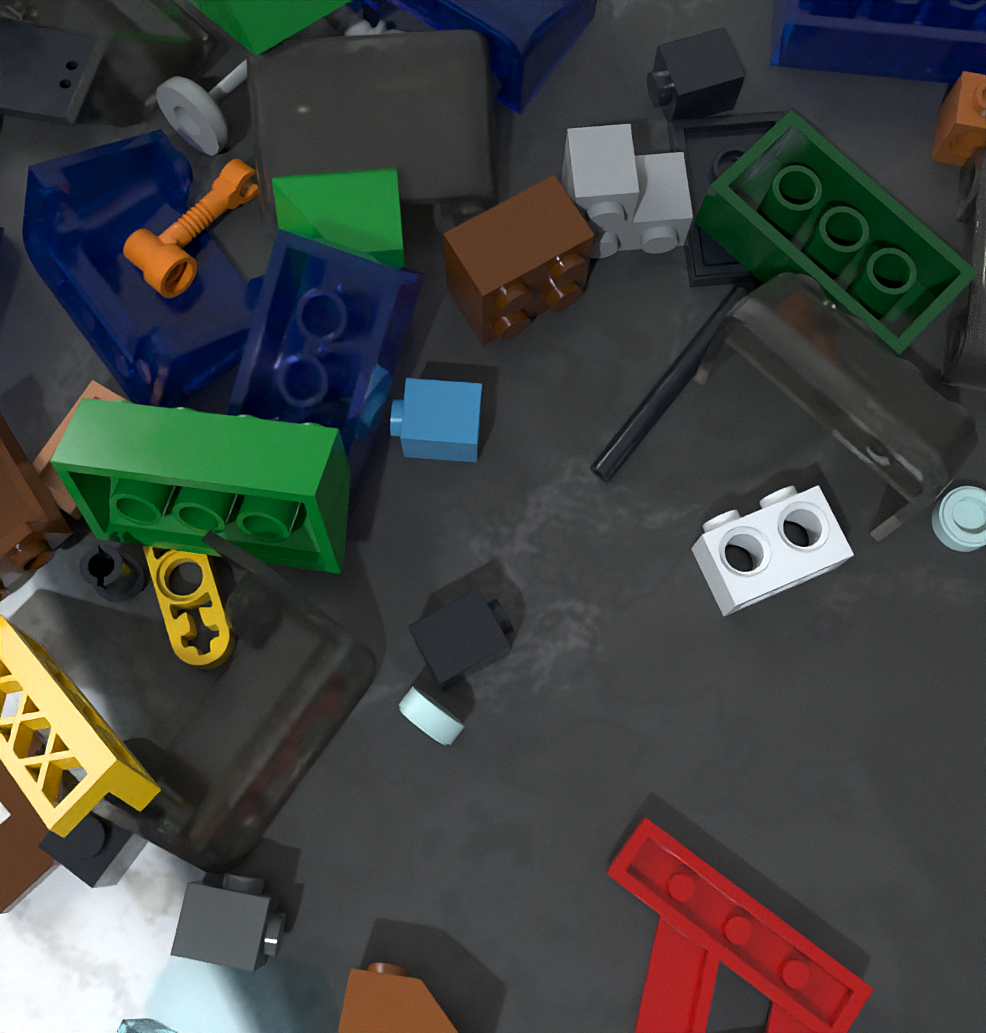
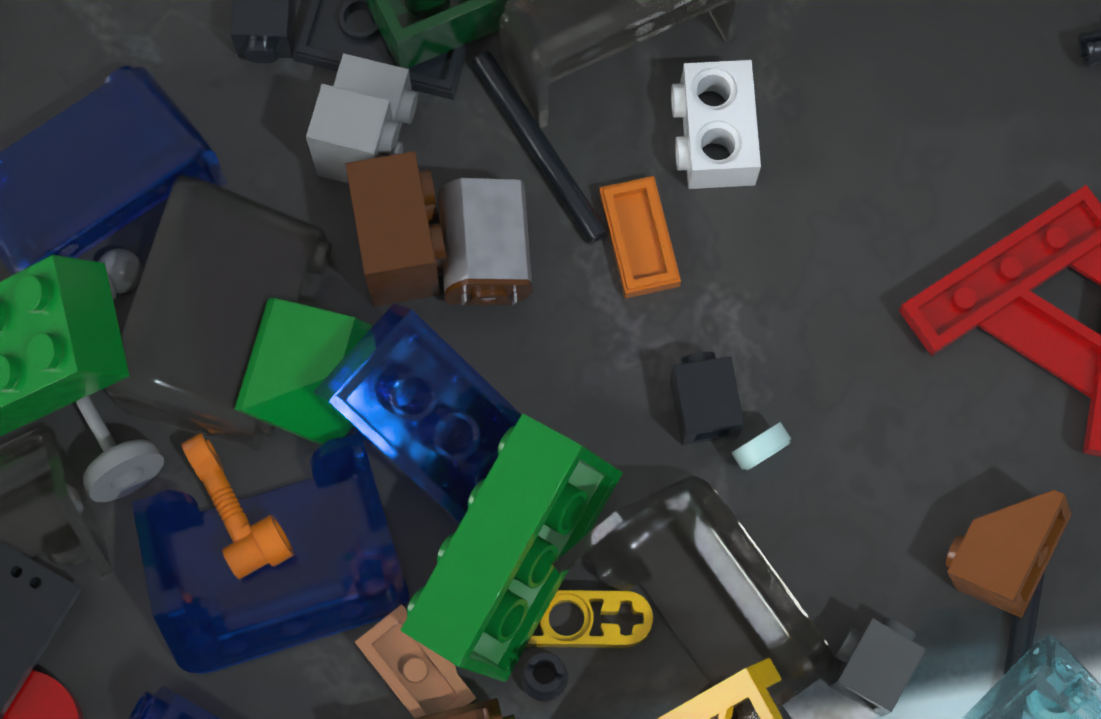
camera: 70 degrees left, 0 degrees up
(438, 420) = (508, 348): dark azure brick -> none
(543, 356) = (485, 242): none -> flat silver piece
(616, 515) = (639, 237): none -> orange tile

